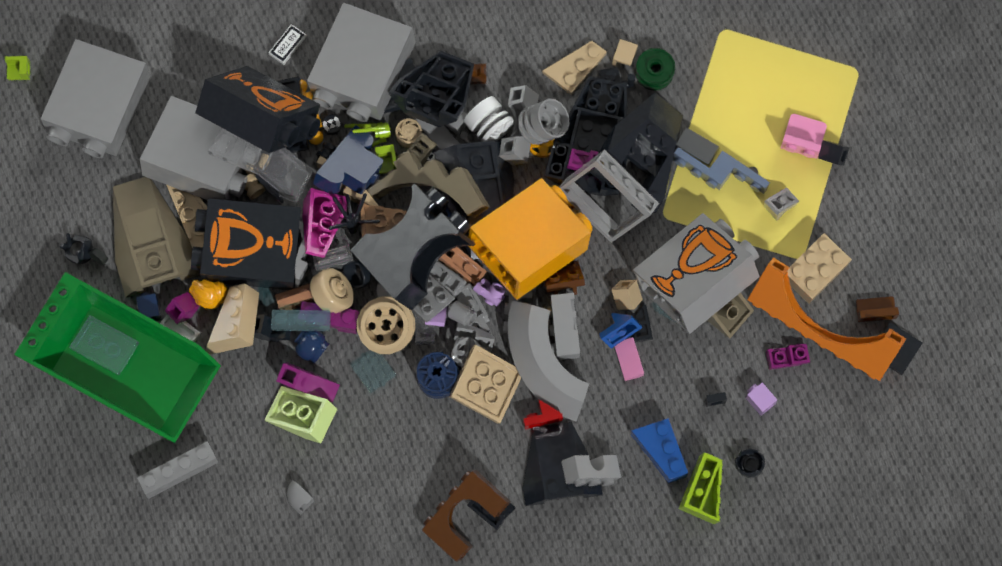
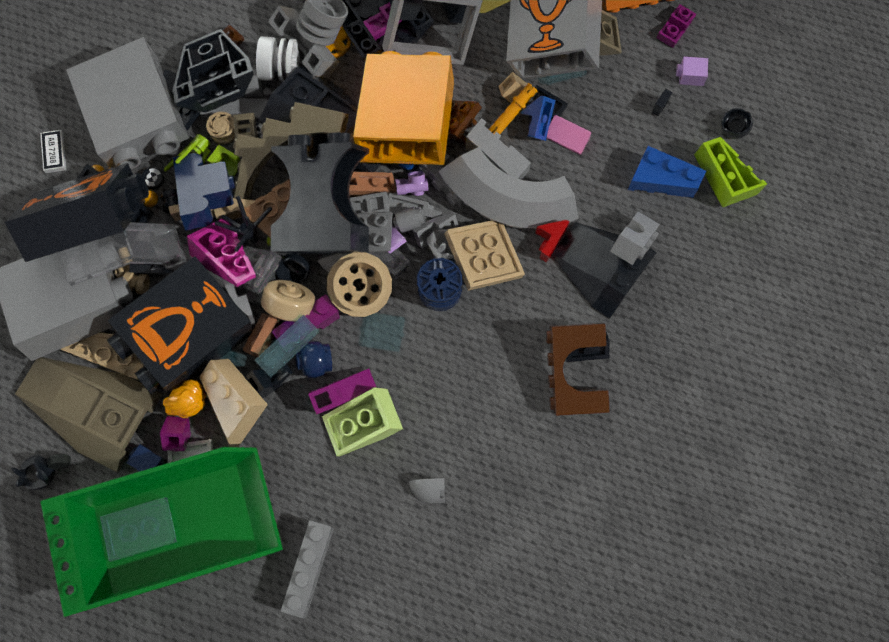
camera: 45 degrees left, 0 degrees up
(607, 306) = (513, 109): none -> light orange pin

